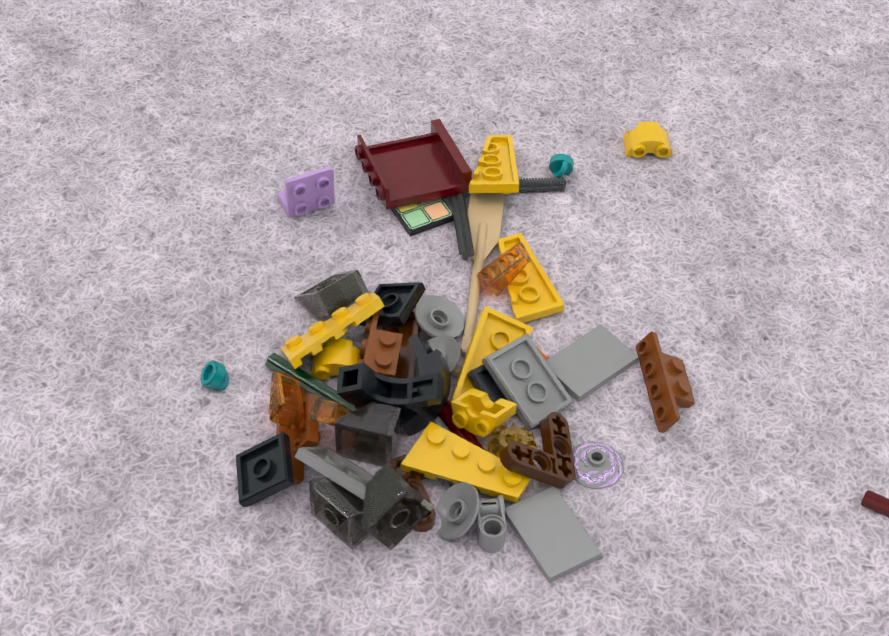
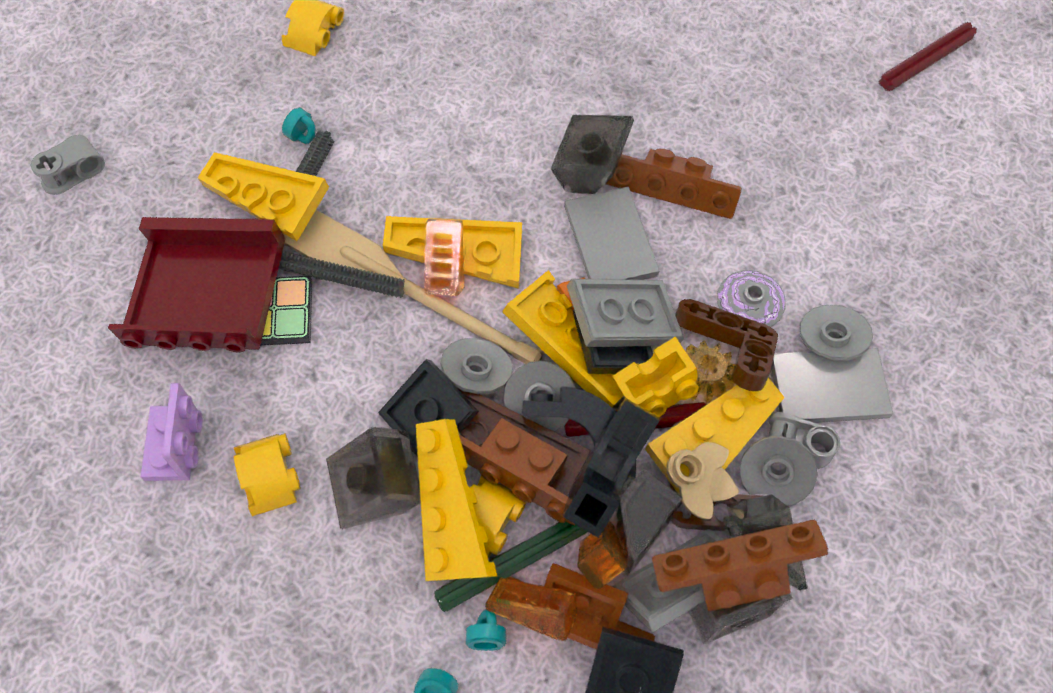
camera: 65 degrees left, 15 degrees up
(258, 387) = (486, 633): none -> teal tile
(307, 245) = (265, 474): none -> yellow cylinder
(355, 476) = (742, 566): none -> dark orange bracket
(421, 462) = (706, 478): none -> tan plate
(459, 77) = (70, 162): none -> light grey piece
(595, 518) = (836, 332): none -> light grey dish
(642, 315) = (590, 151): none -> clear smoke slope

